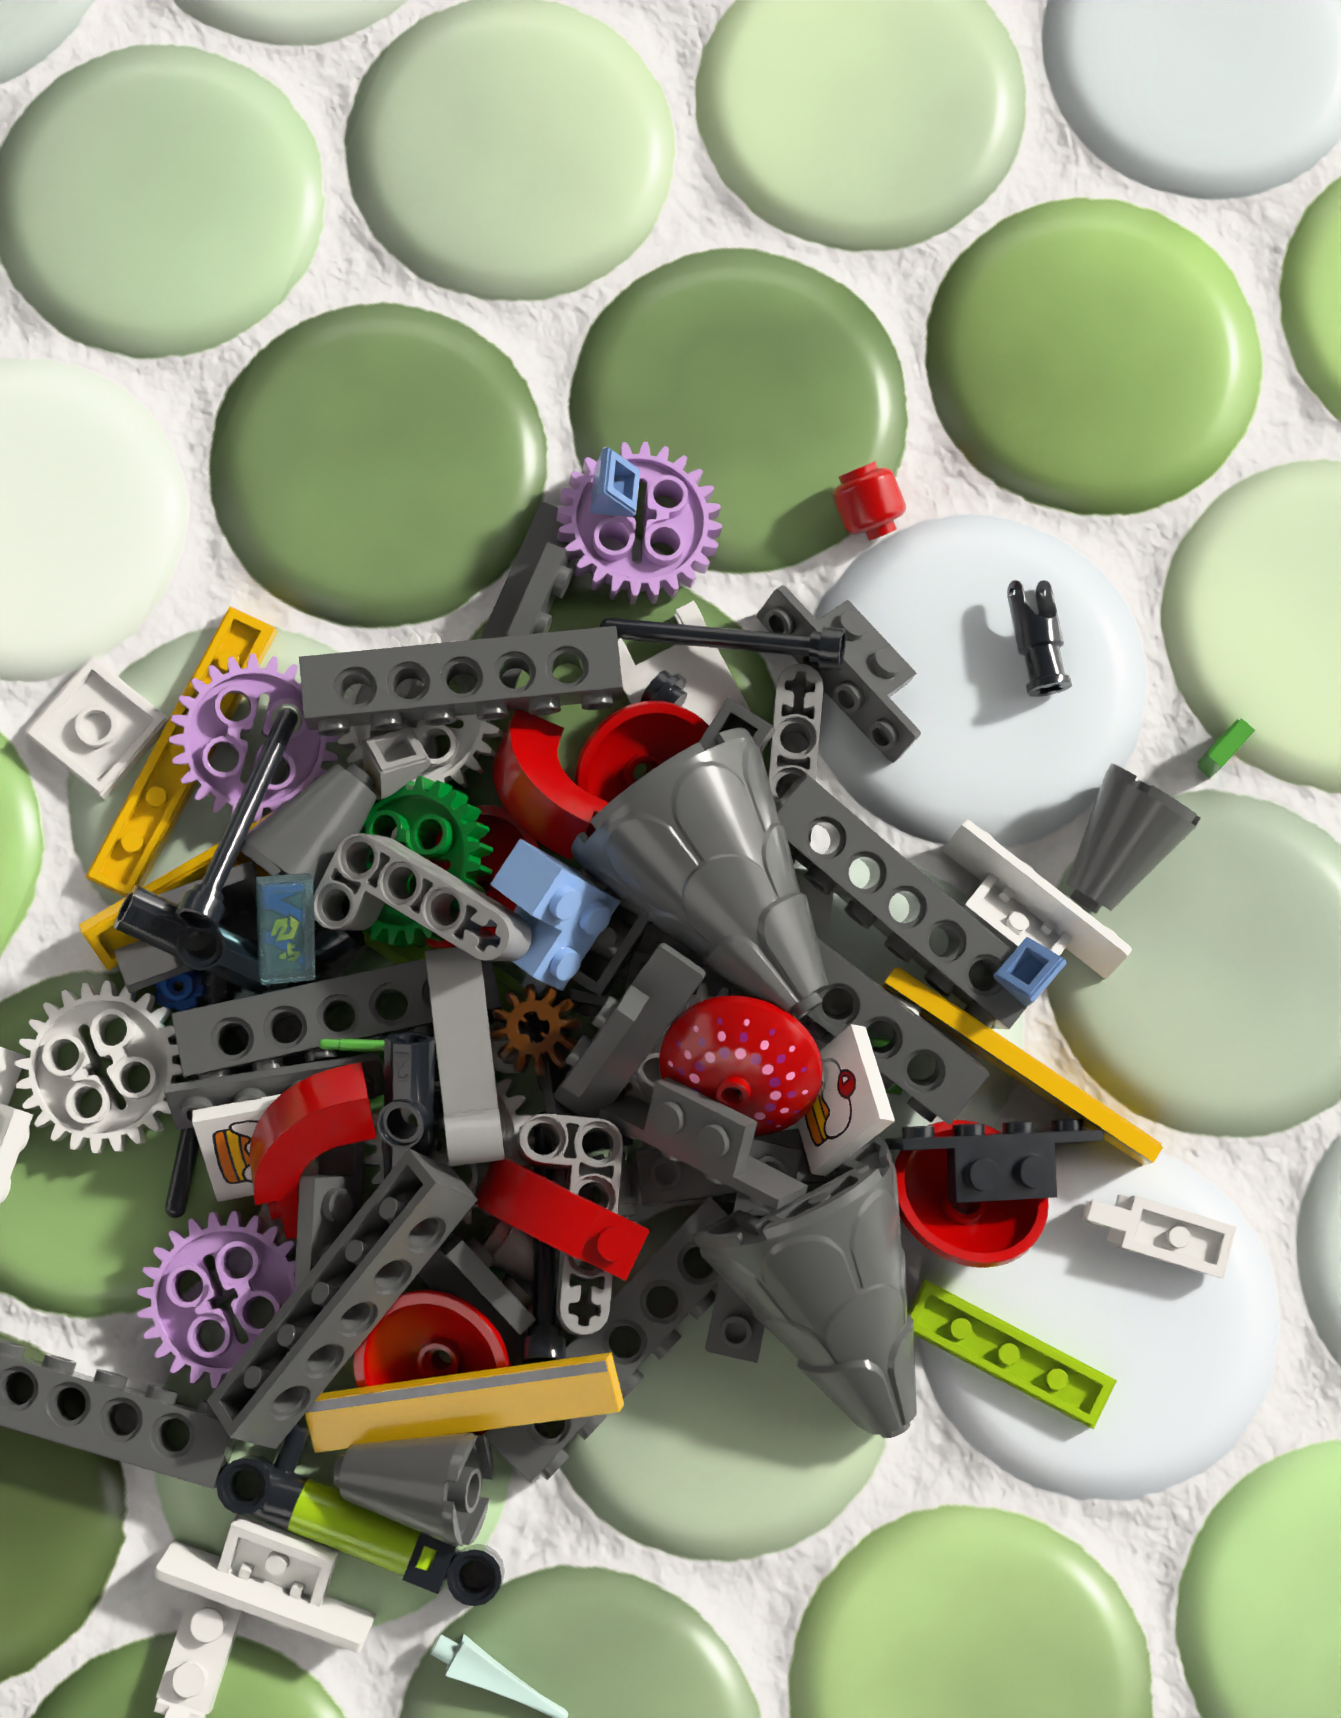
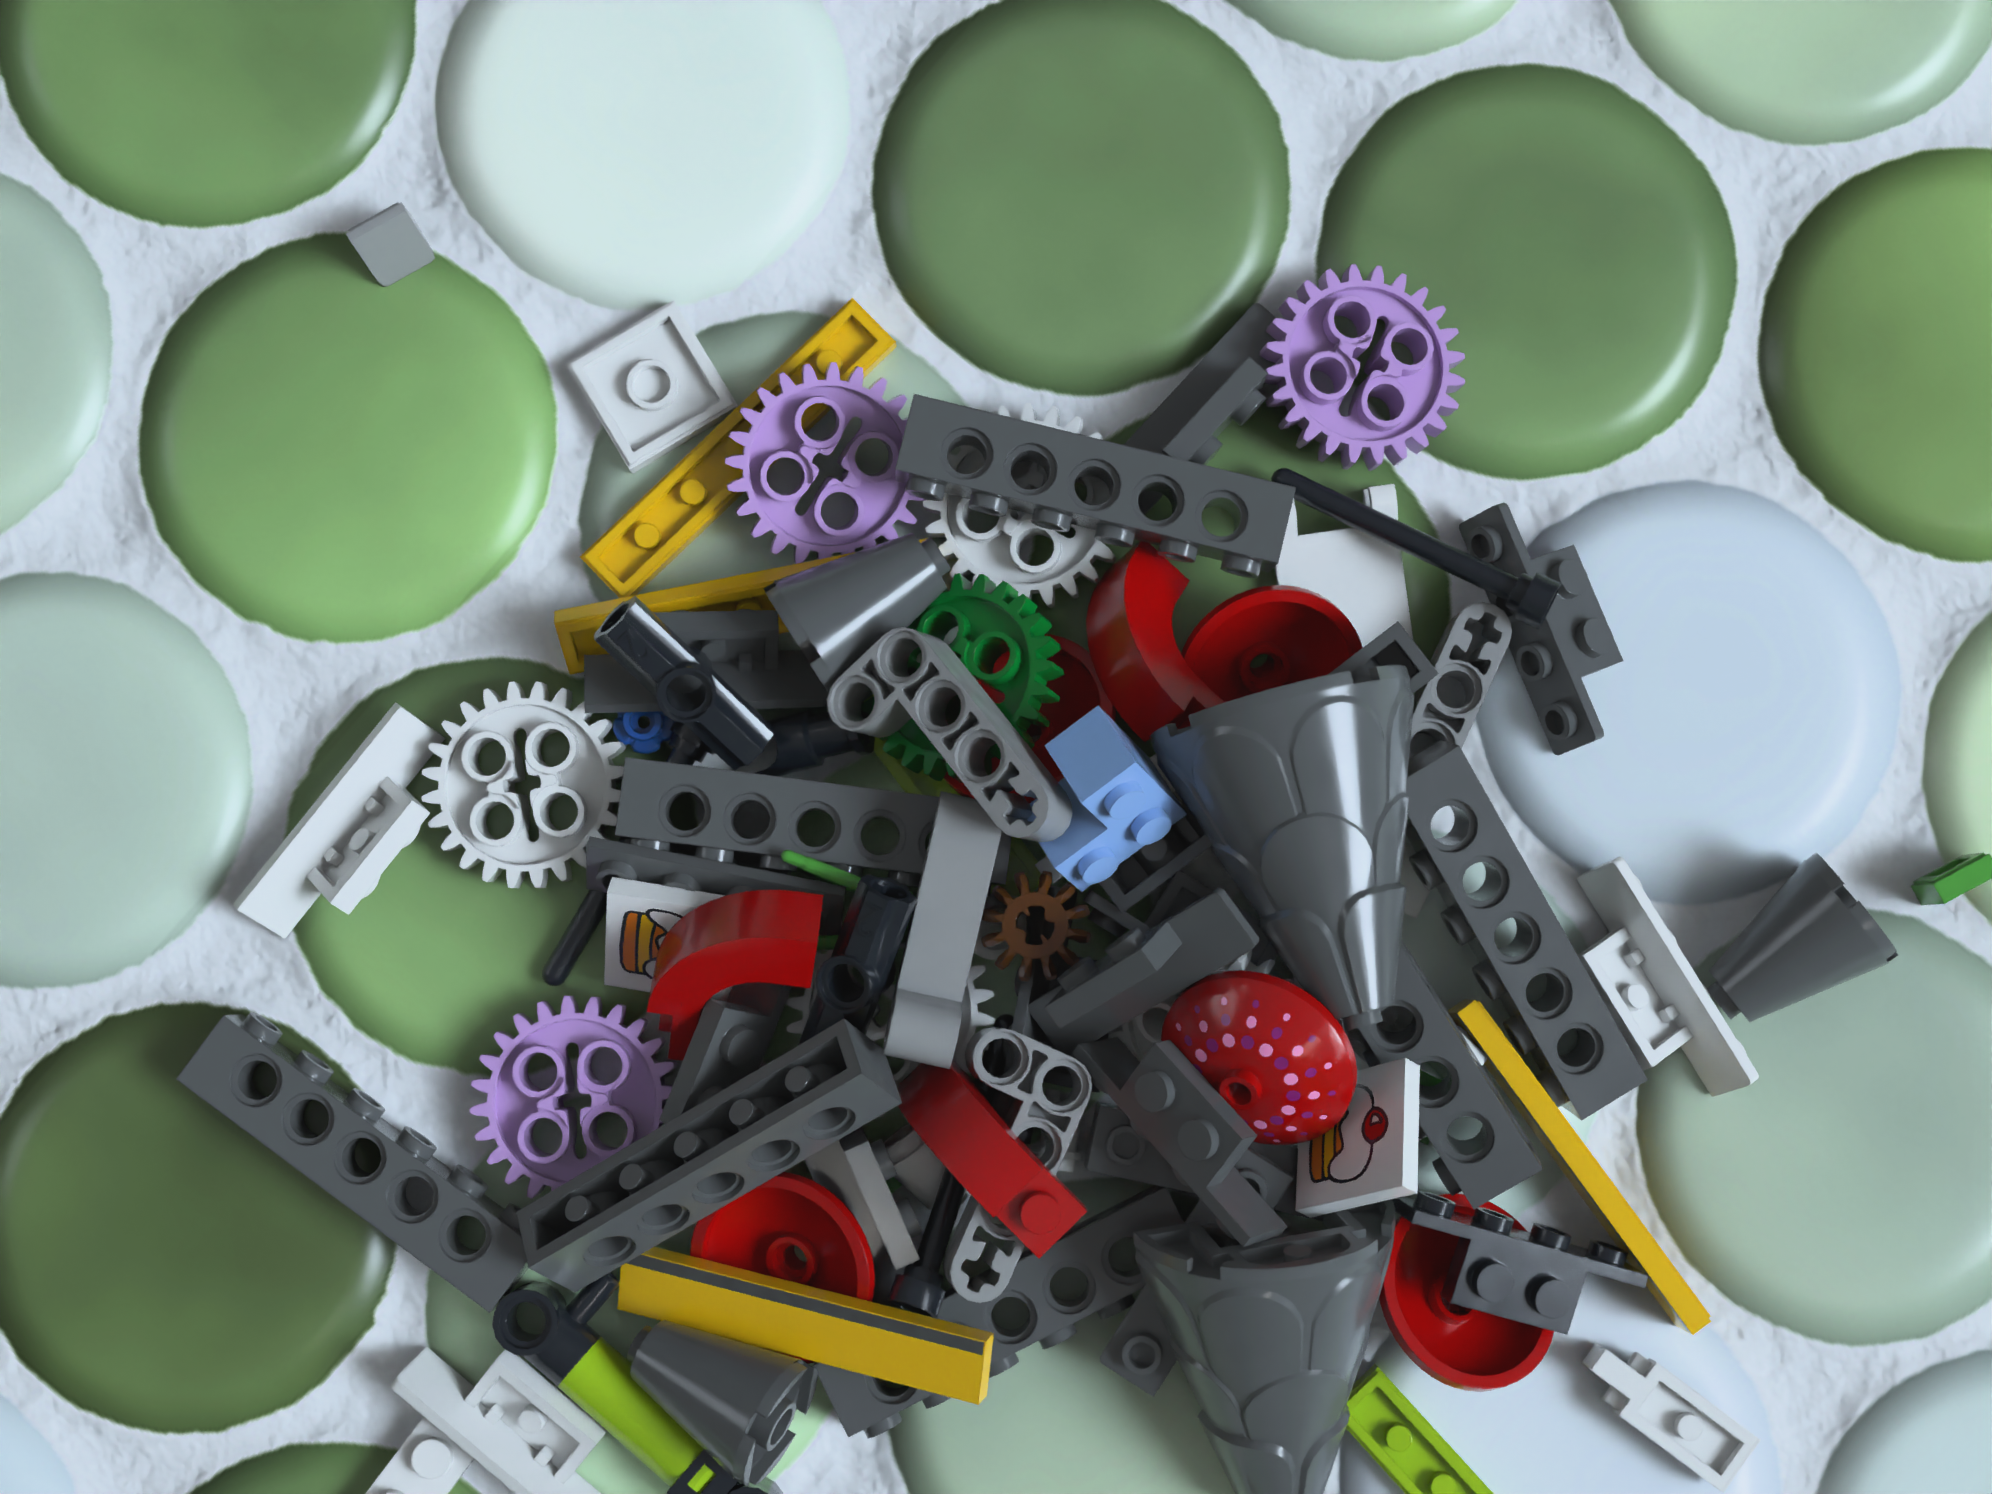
camera: 20 degrees right, 5 degrees up
(203, 904) = (704, 649): black piece -> none
(285, 928) = (790, 707): clear light blue tile -> none
(393, 760) = (980, 551): light grey slope -> none
(614, 485) = (1350, 316): medium blue slope -> none
(666, 688) = (1324, 578): black plate -> none
(869, 501) = (1642, 437): red head -> none
(1029, 971) = (1632, 1064): medium blue slope -> none
(1039, 639) = (1782, 670): black piece -> none

